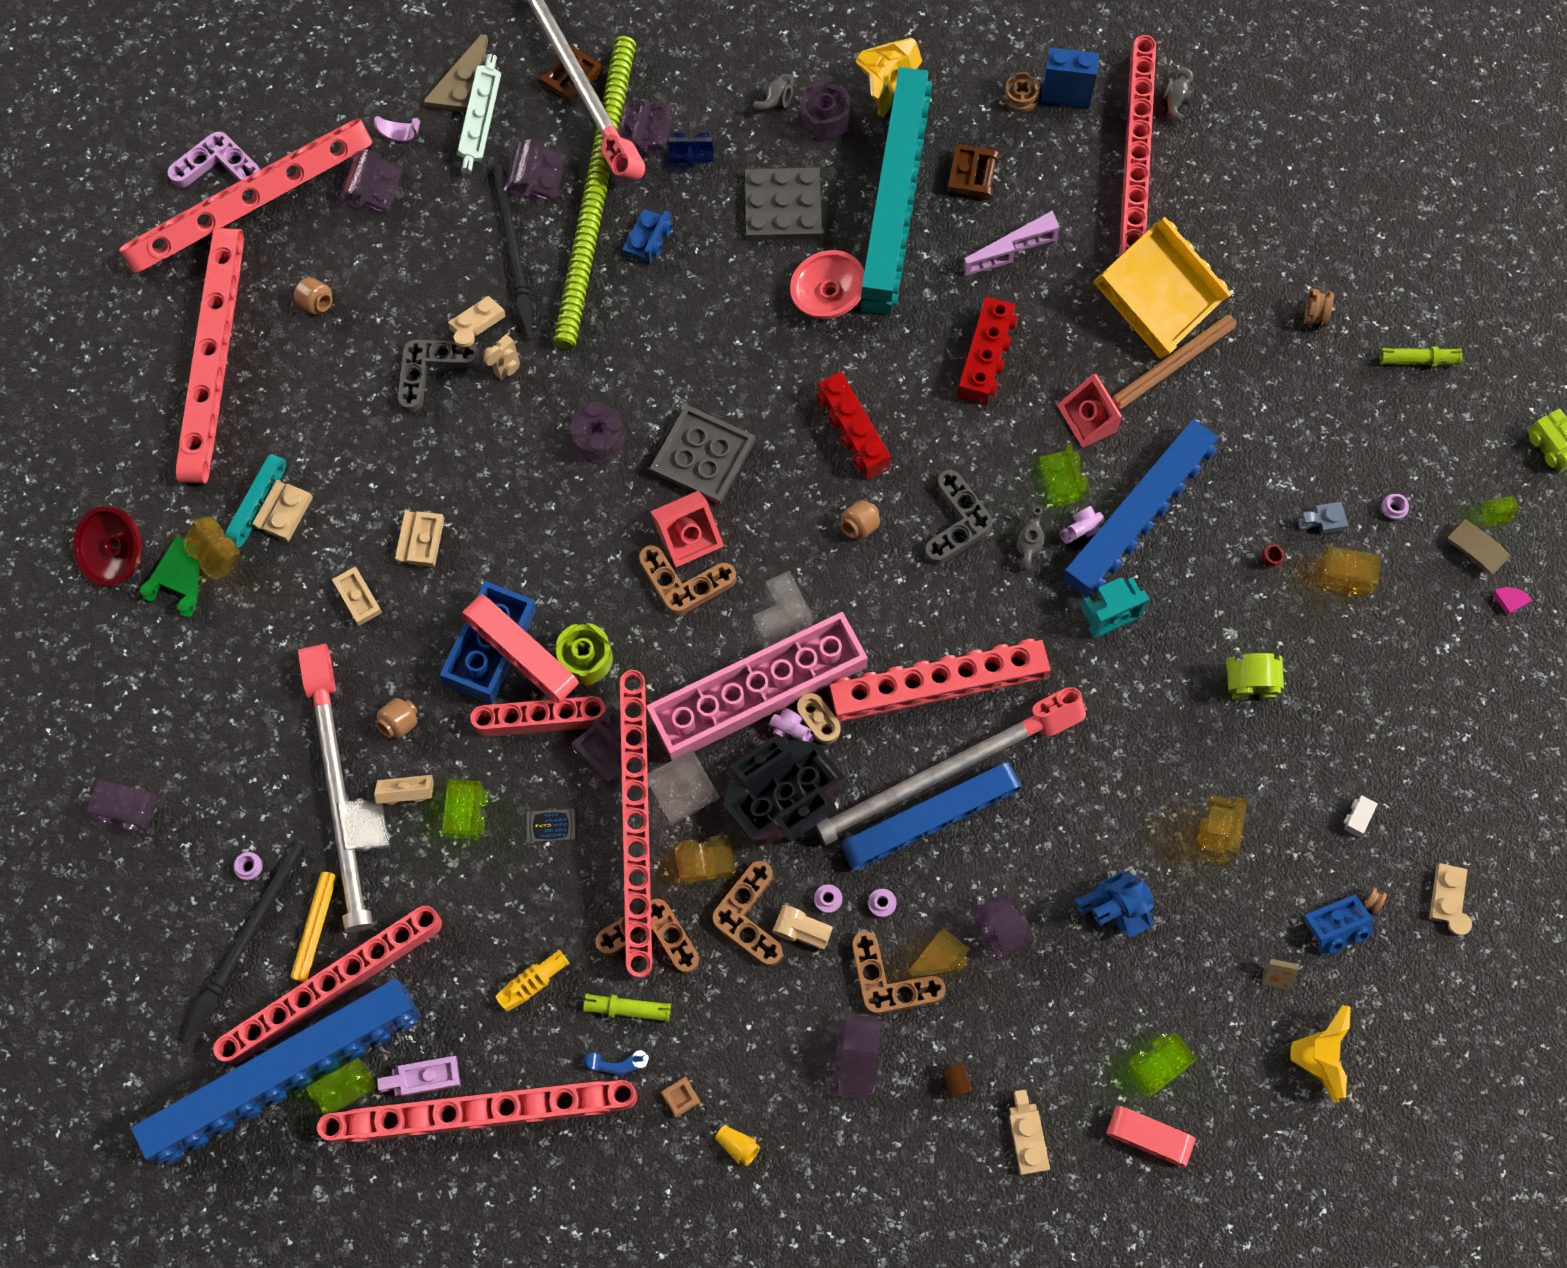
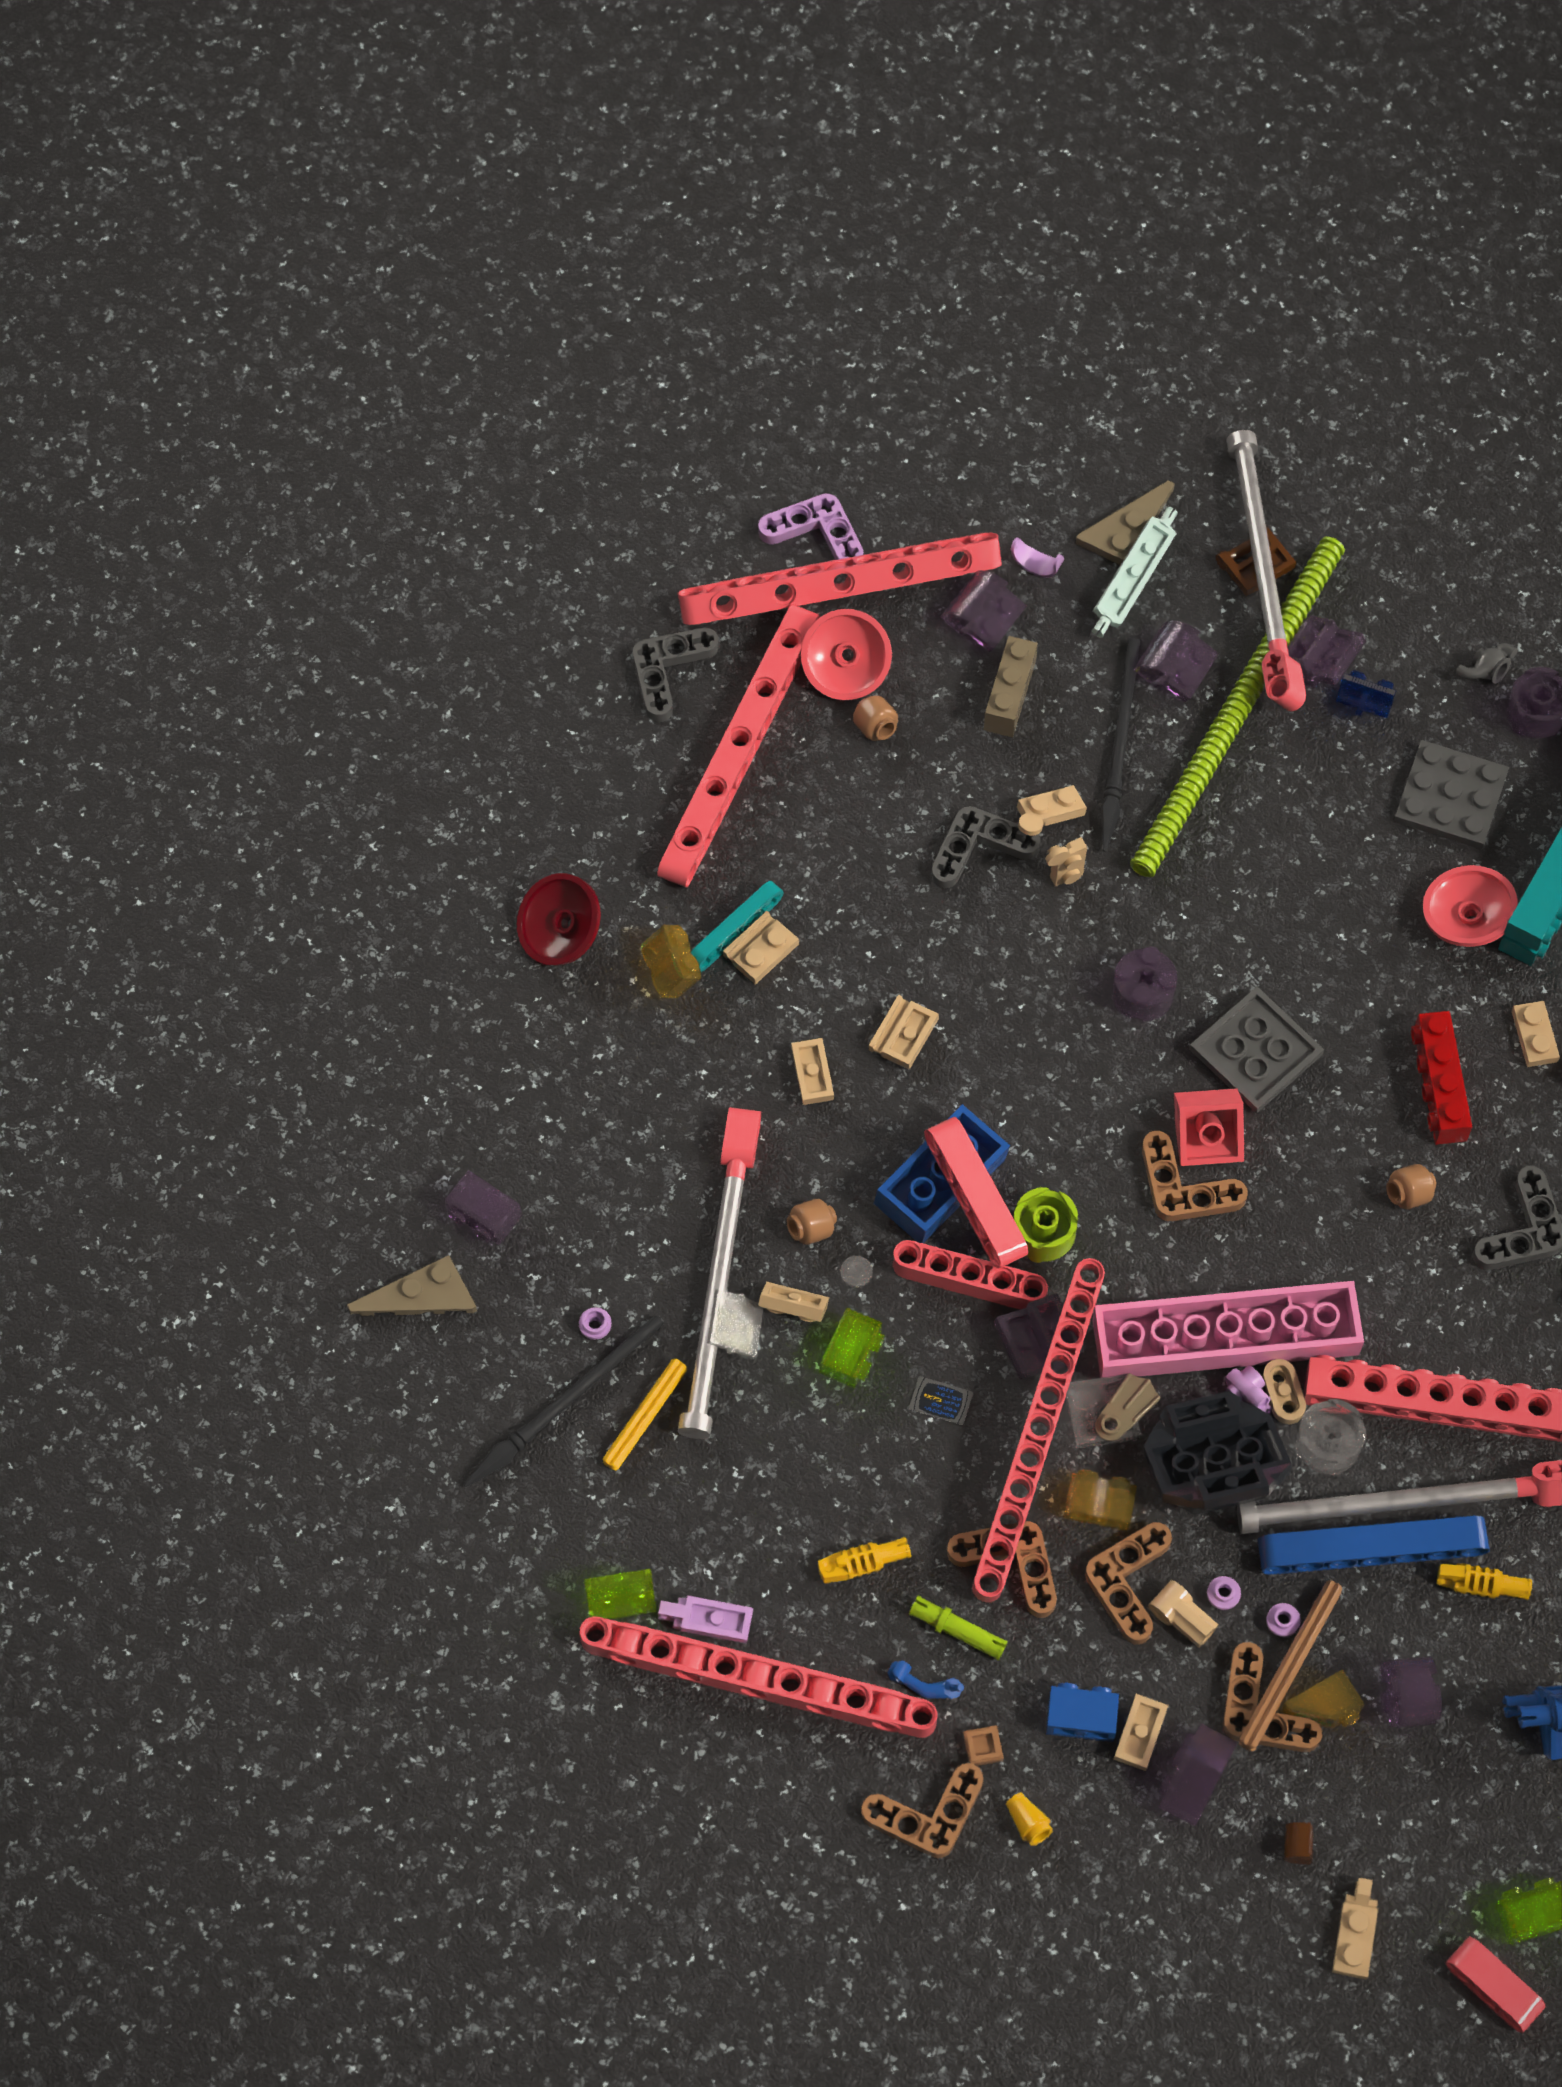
camera: 20 degrees right, 5 degrees down
(102, 887) = (429, 1289): none -> dark tan wing
(124, 307) = (661, 658): none -> dark grey beam
(178, 573) = (623, 976): green flag -> none
(253, 250) = (824, 650): none -> coral dish
(276, 1073) = (559, 1553): blue piece -> none
(314, 986) = (629, 1494): coral beam -> none
(411, 235) = (1010, 686): none -> dark tan brick
(447, 745) = (856, 1271): none -> clear plate
(647, 236) = (1280, 778): blue bracket -> none
(657, 1182) = (926, 1826): none -> medium nougat beam
(699, 777) = (1126, 1407): none -> dark tan piece
(750, 1039) = (1082, 1712): none -> blue brick
(786, 616) = (1289, 1262): clear brick -> none
(802, 1038) = (1140, 1732): none -> tan plate
(853, 737) = (1327, 1454): none -> clear brick
(900, 939) = (1290, 1666): none -> medium nougat axle
(912, 366) = (1535, 1034): none -> tan plate
(1025, 813) = (1482, 1581): none -> yellow hinge

